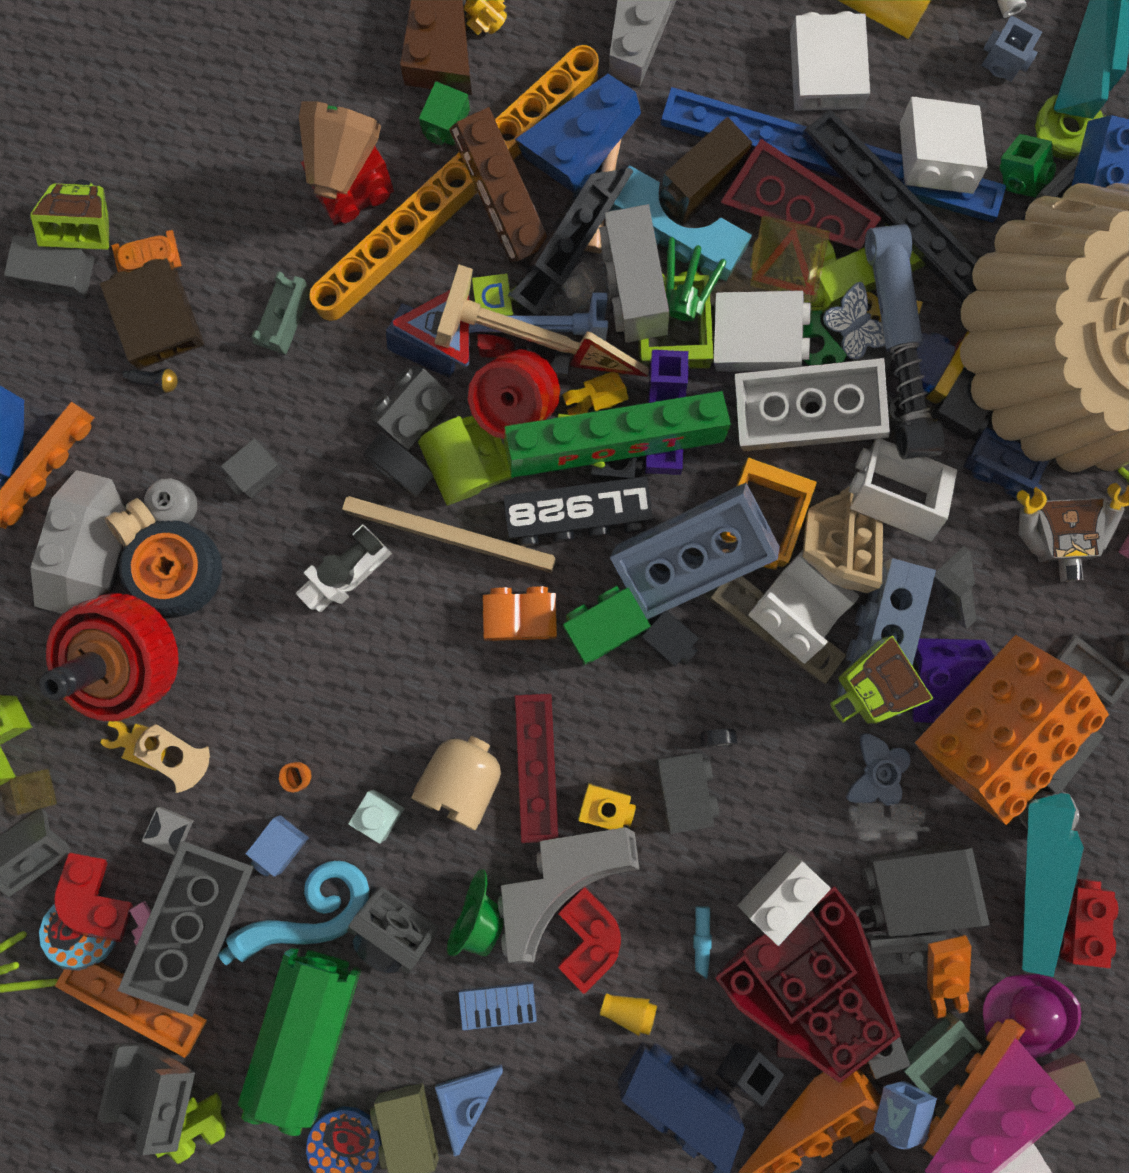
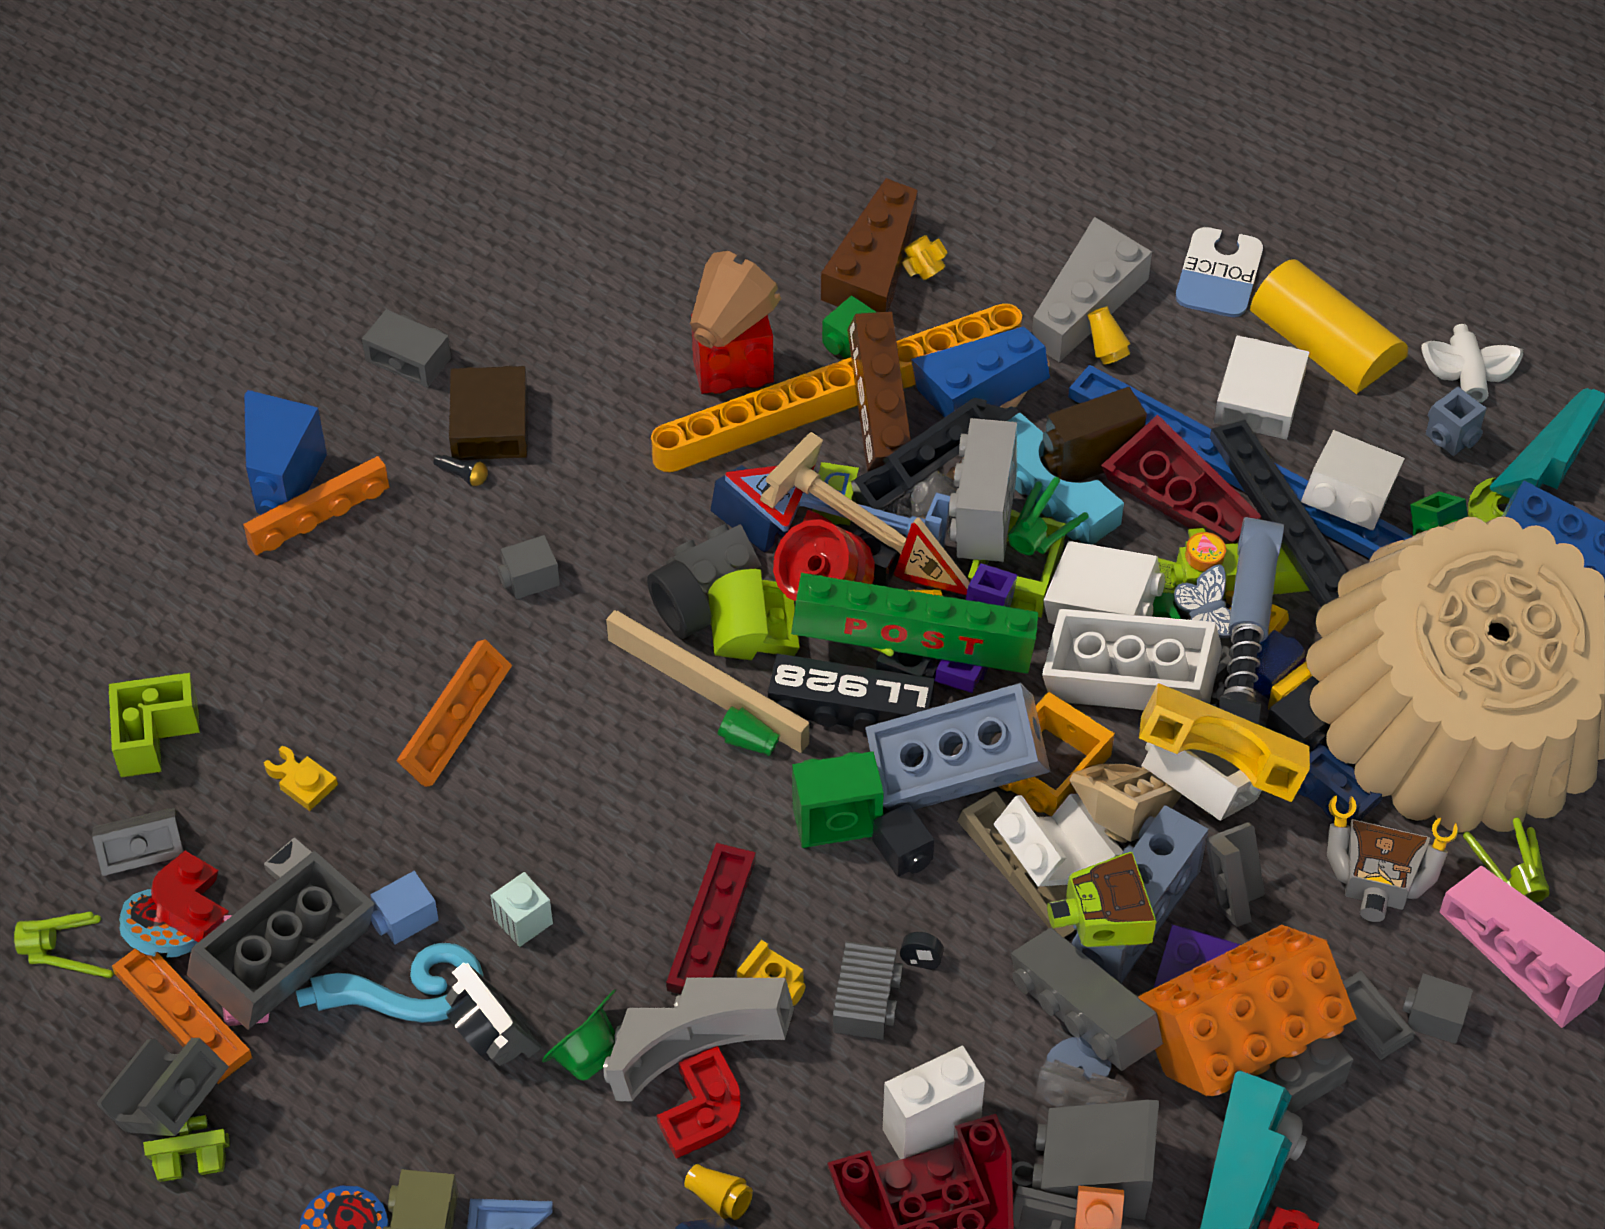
camera: 20 degrees right, 30 degrees down
(33, 791) = (172, 789): clear yellow tile -> none
(72, 217) = (454, 310): lime torso -> none
(76, 548) = (322, 586): light grey wedge -> none
(110, 657) = (317, 675): red wheel -> none
(129, 522) = (389, 571): tan wheel -> none
(136, 253) = (501, 359): orange piece -> none
(170, 501) = (434, 571): light grey head -> none
(187, 772) = (335, 817): tan piece -> none
(191, 579) = (408, 627): wheel -> none
(245, 639) = (454, 713): none -> orange plate
(282, 314) = (618, 449): sand green hinge -> none
(289, 778) = (443, 851): orange hinge -> none
(298, 1041) = (348, 1086): green brick -> none
(343, 572) = (584, 676): hips -> none
(460, 780) = (621, 899): tan cylinder -> none
(497, 1005) = (574, 1141): medium blue tile -> none
(502, 573) = (747, 731): none -> green cone
(519, 615) = (749, 774): orange brick -> none
(679, 51) = (1108, 338): none -> yellow cone
(702, 940) = (829, 1149): medium azure piece -> none
(788, 257) = (1156, 527): clear yellow piece -> none
(841, 270) = (1205, 551): none -> tile
(876, 755) = (1086, 999): none -> dark grey brick
(962, 476) = (1264, 756): none -> yellow arch

